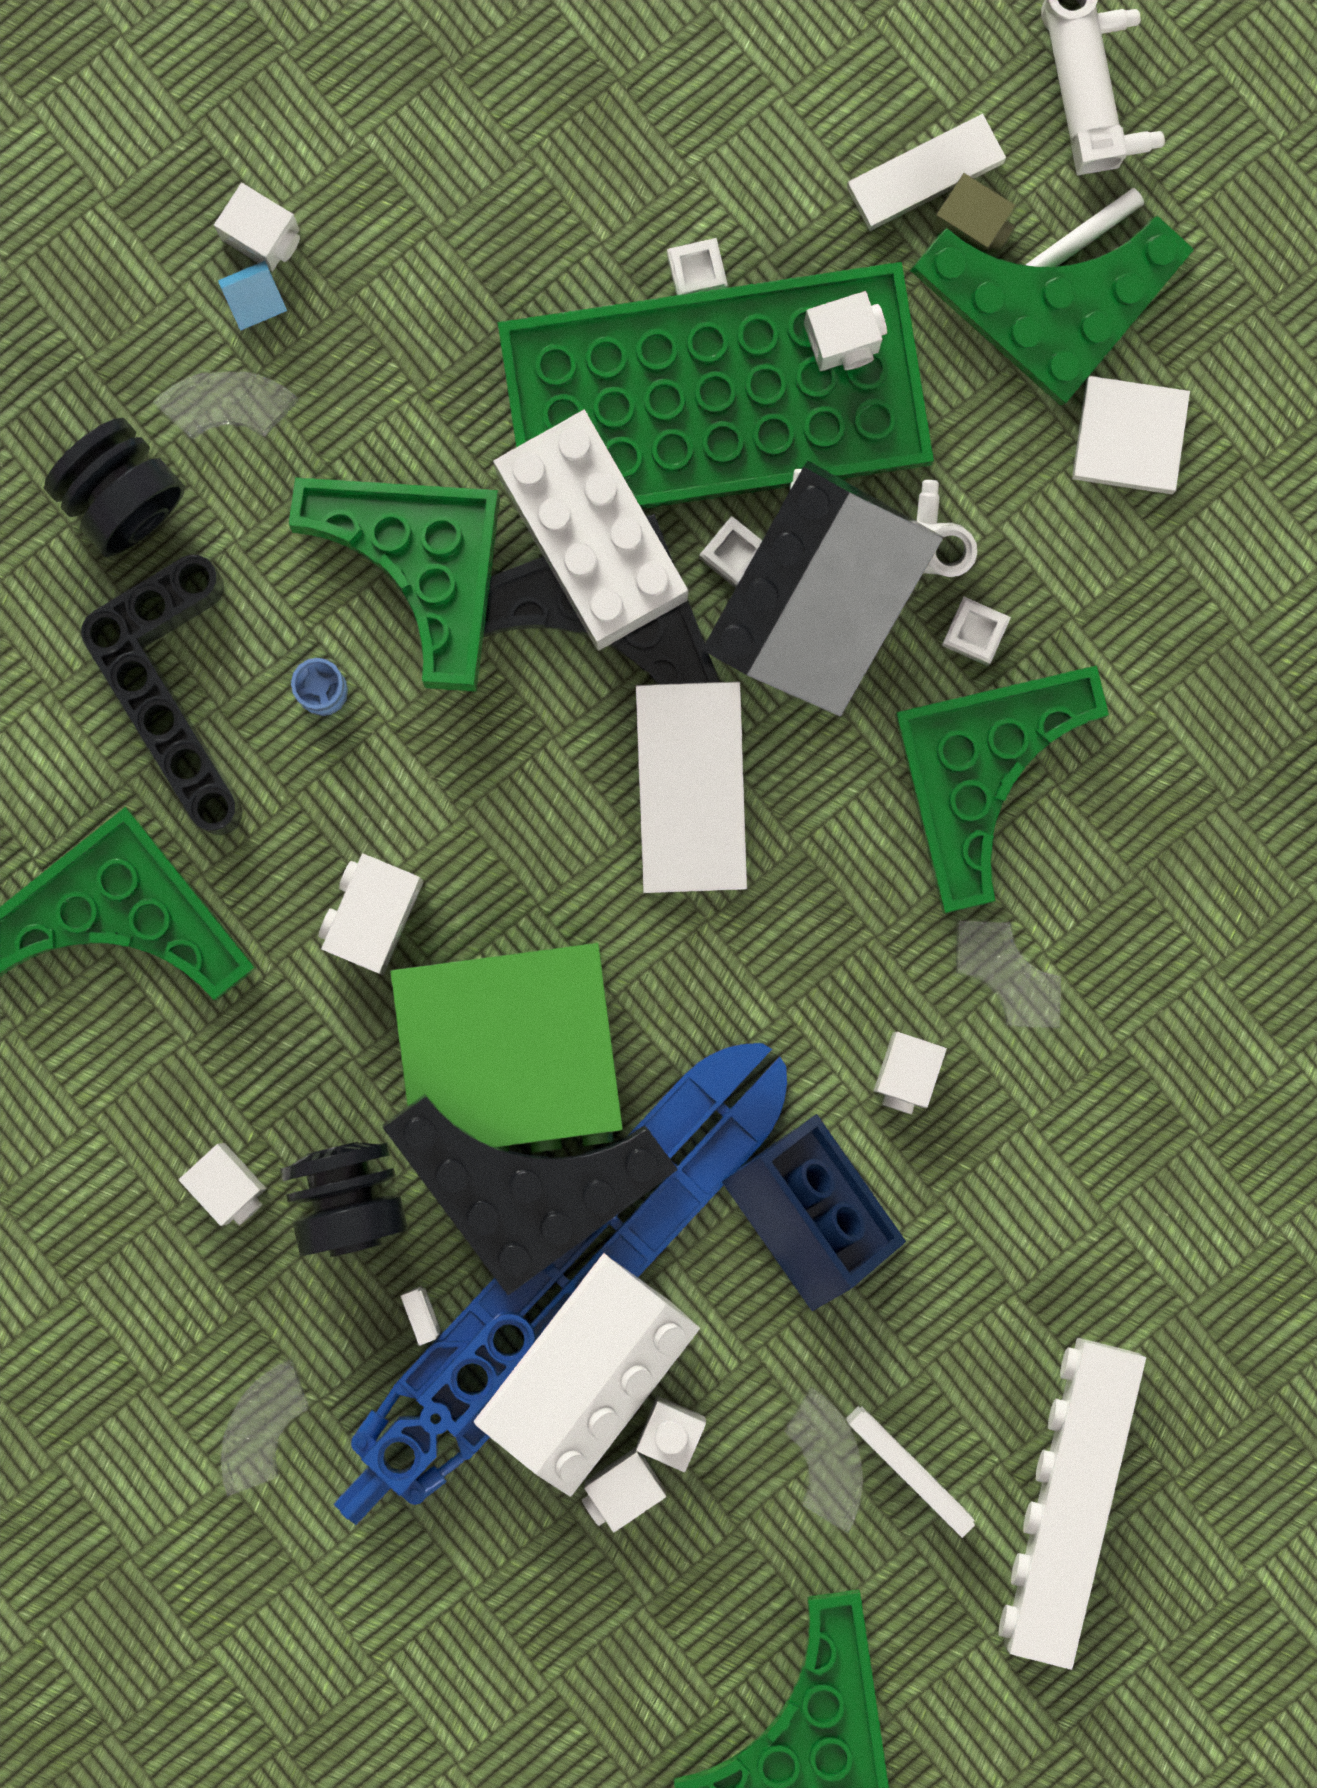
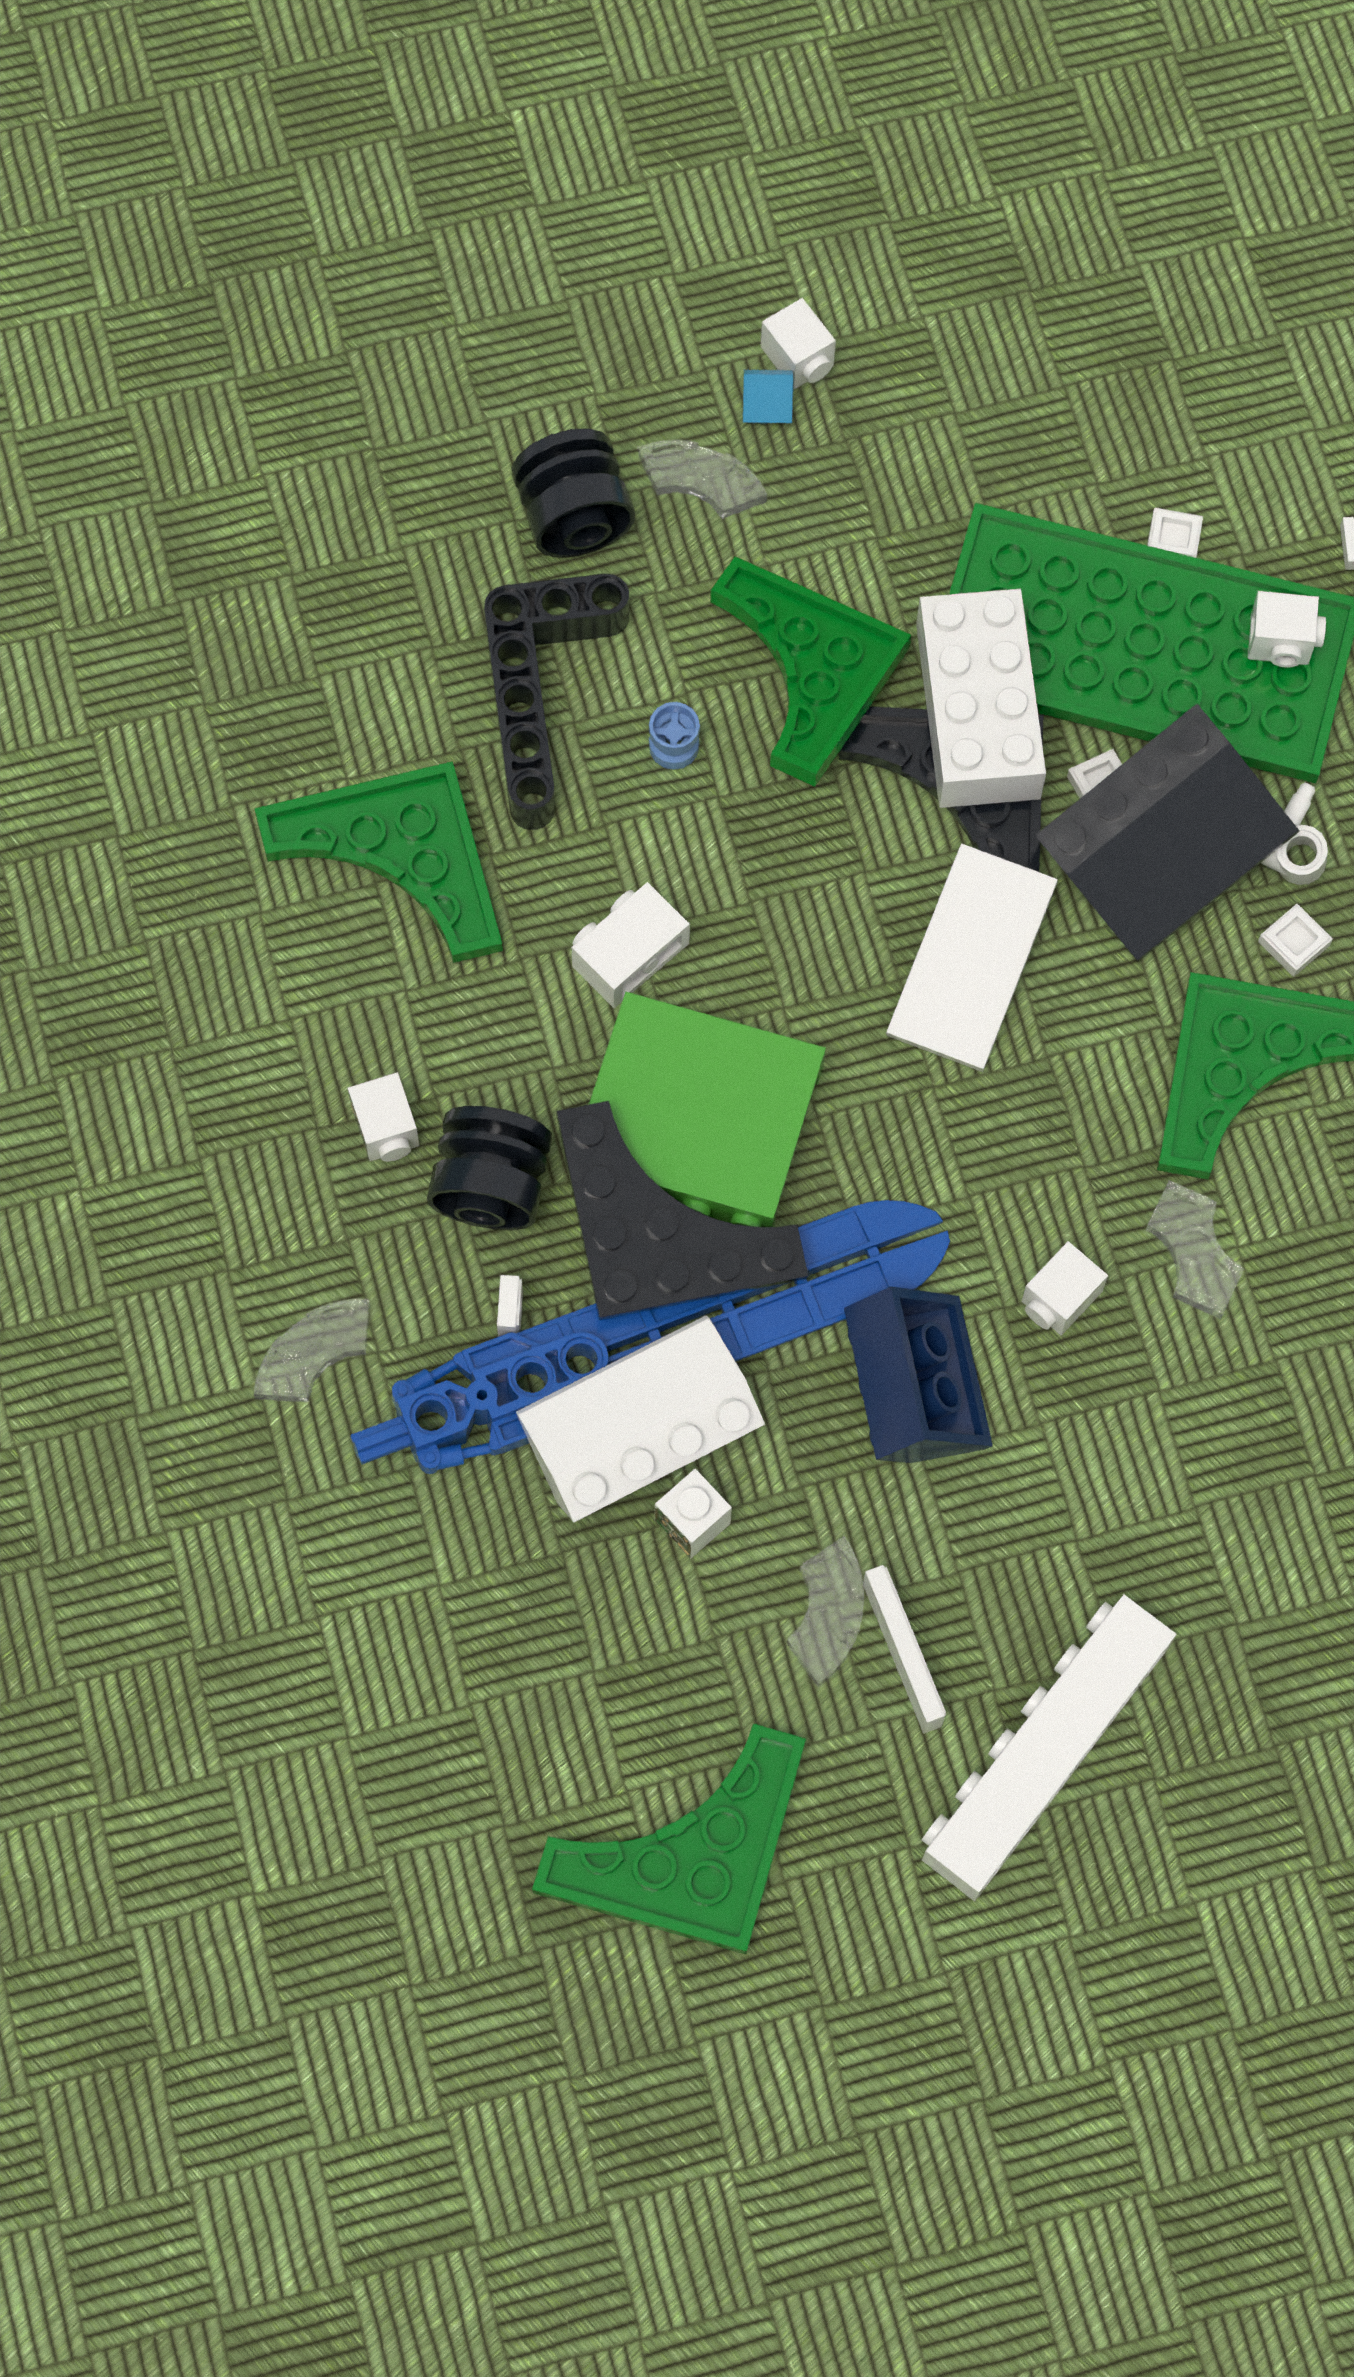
camera: 25 degrees right, 15 degrees down
(623, 1491) = (624, 1547): white brick -> none

